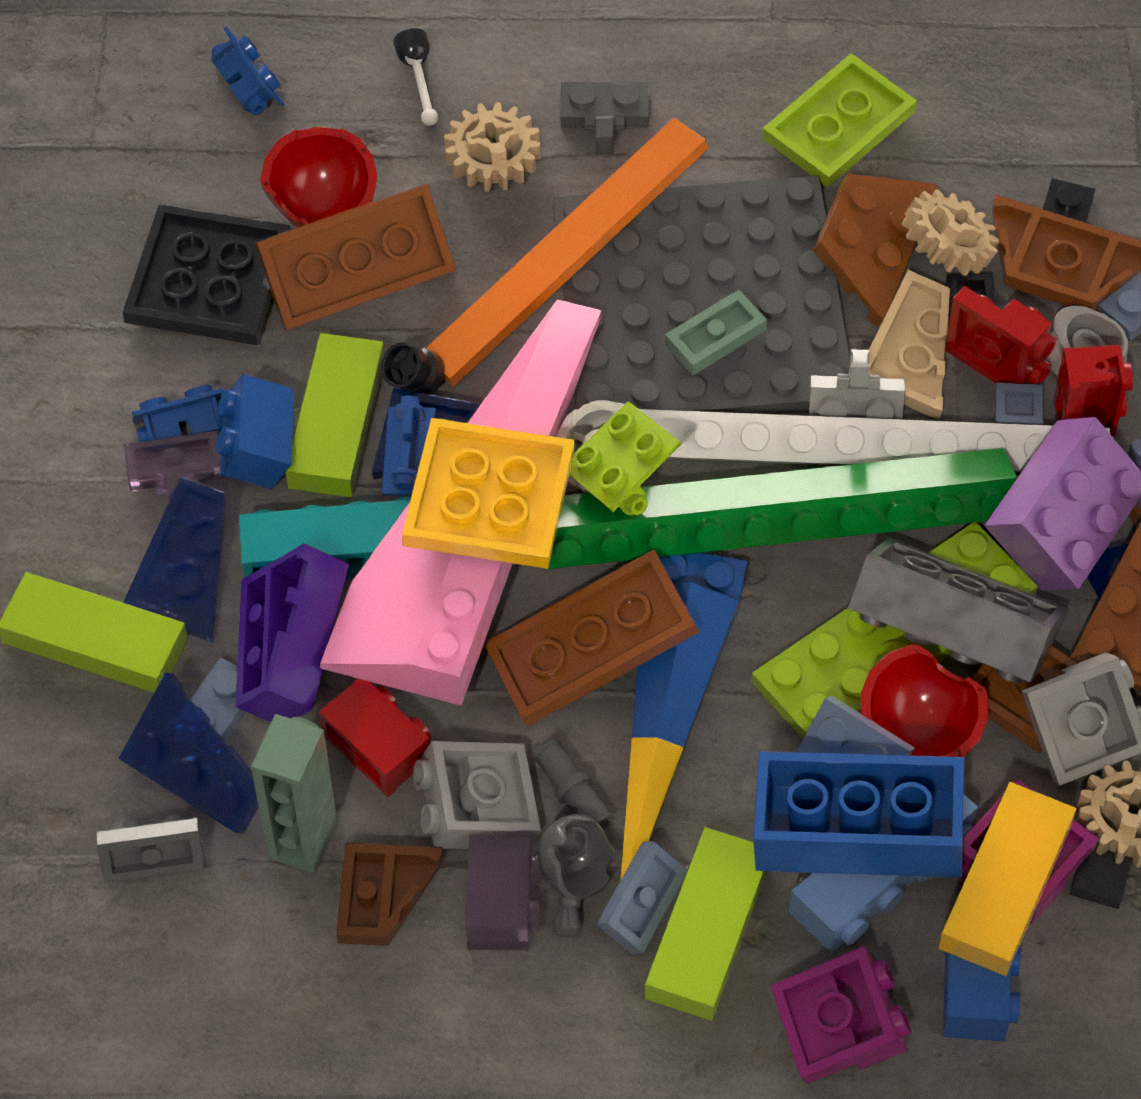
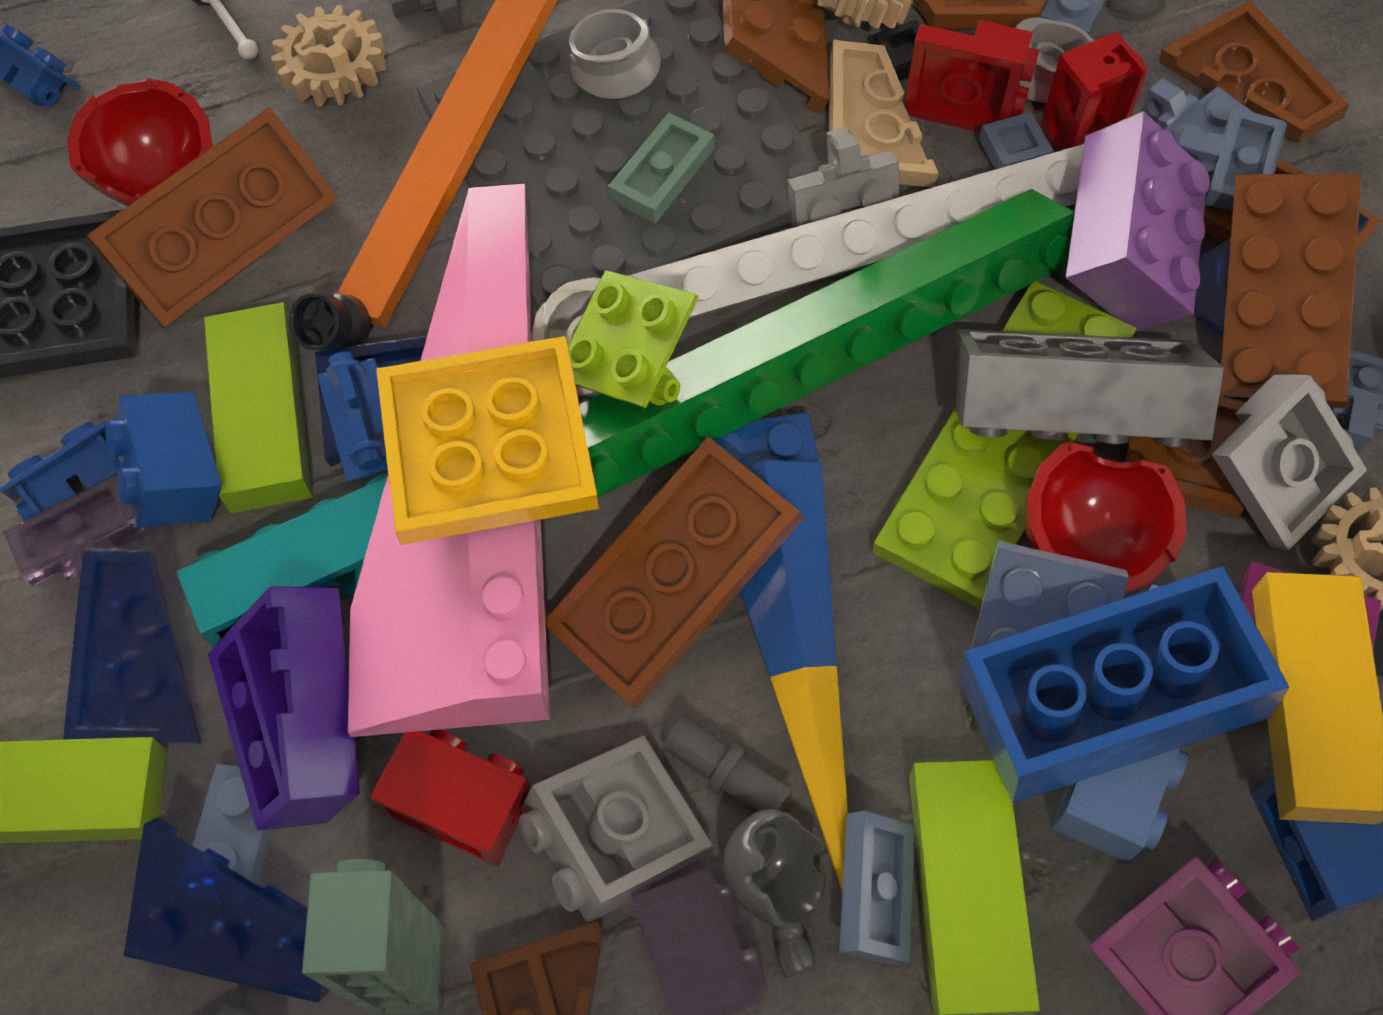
camera: 20 degrees left, 5 degrees up
(718, 224) = (613, 54): none -> light grey piece

